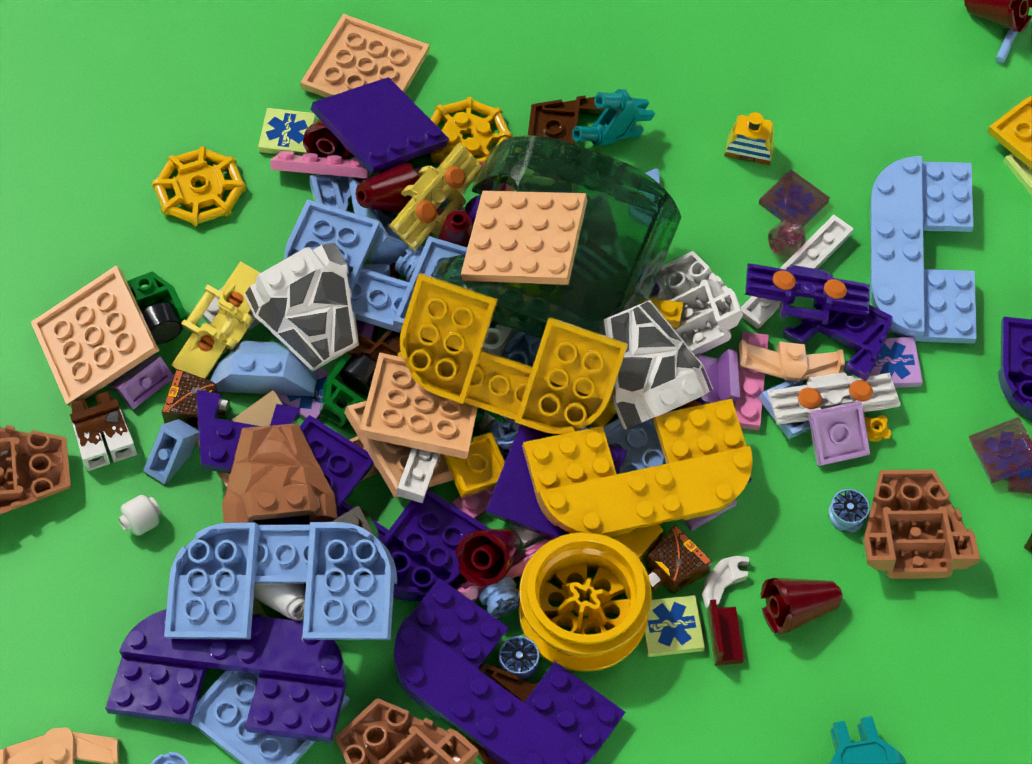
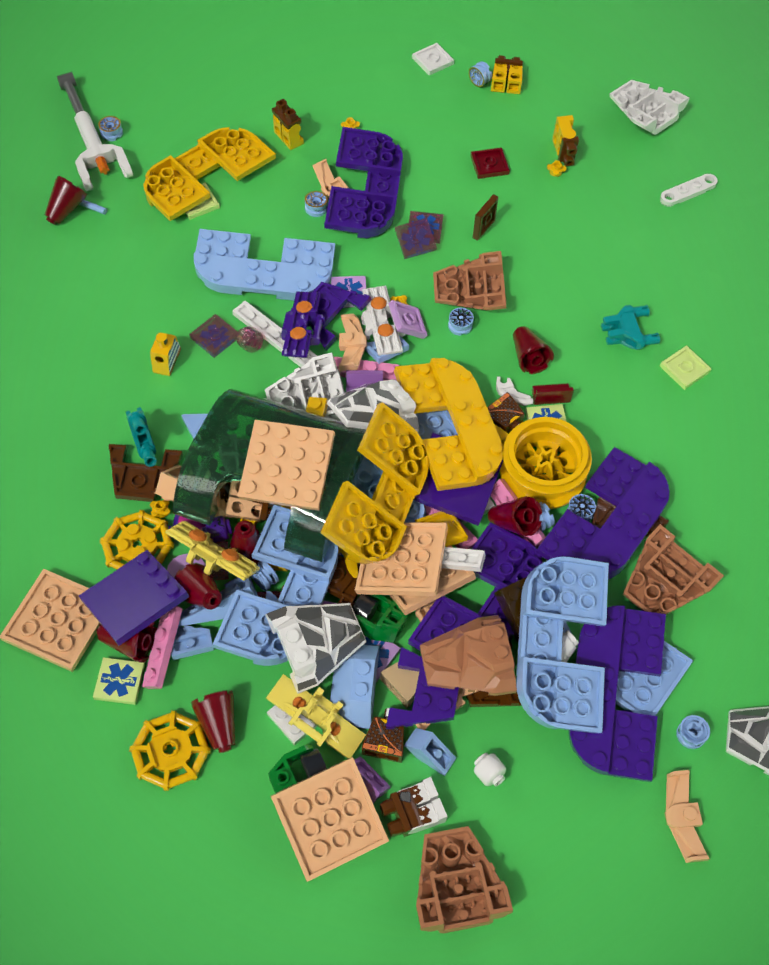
camera: 90 degrees left, 0 degrees up
(227, 224) = (217, 719): none -> dark red cone

